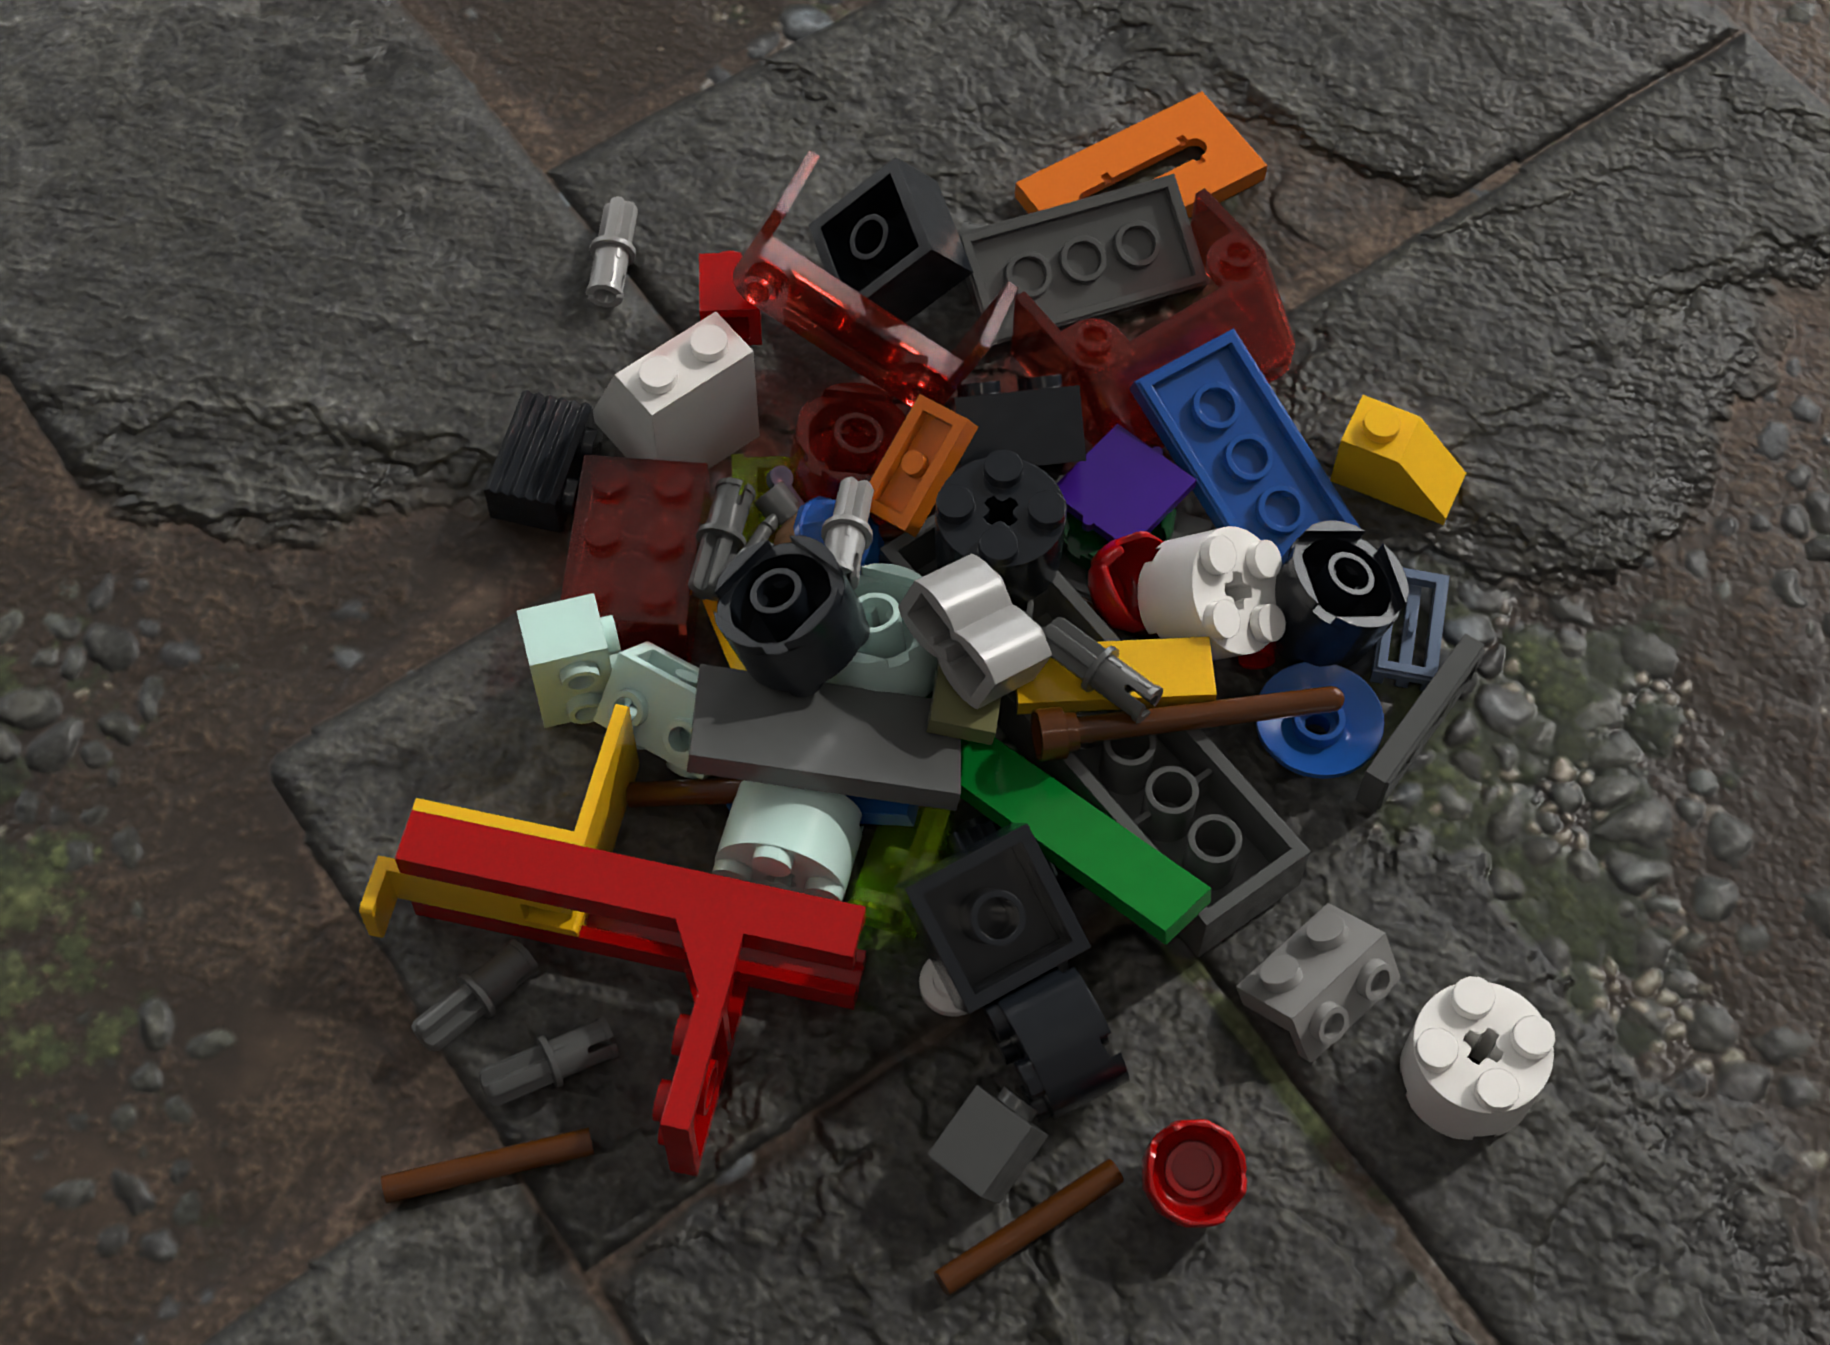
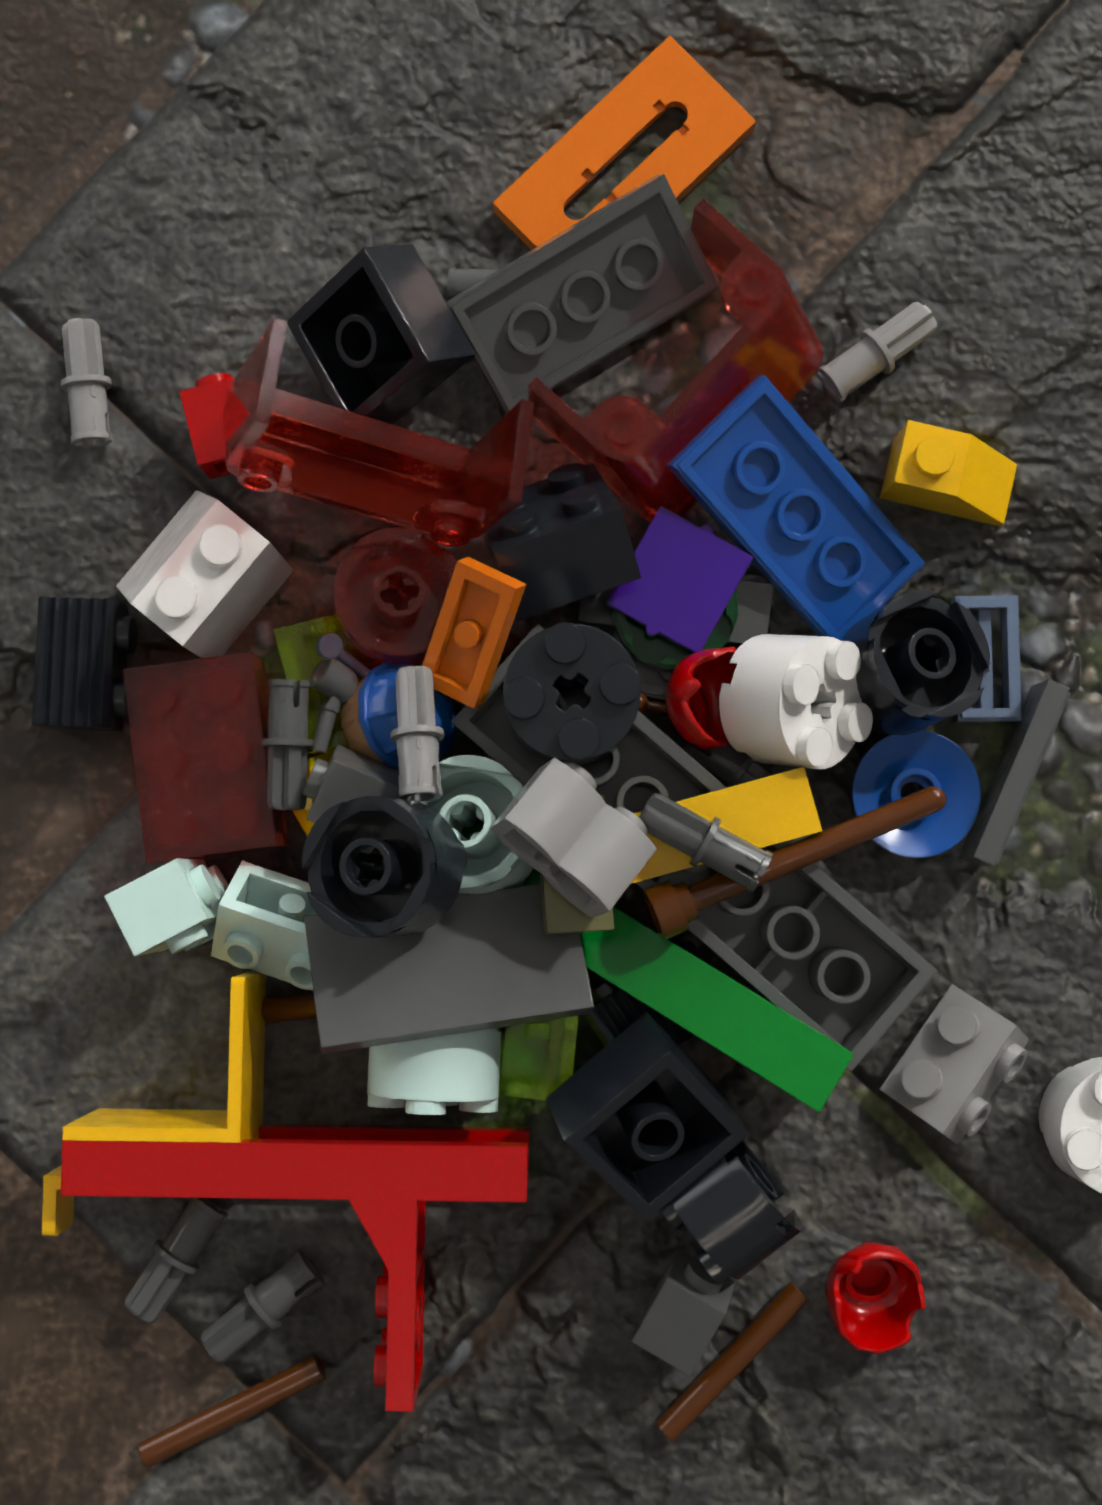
camera: 10 degrees left, 25 degrees up
(1345, 357) = (877, 351): none -> light grey axle

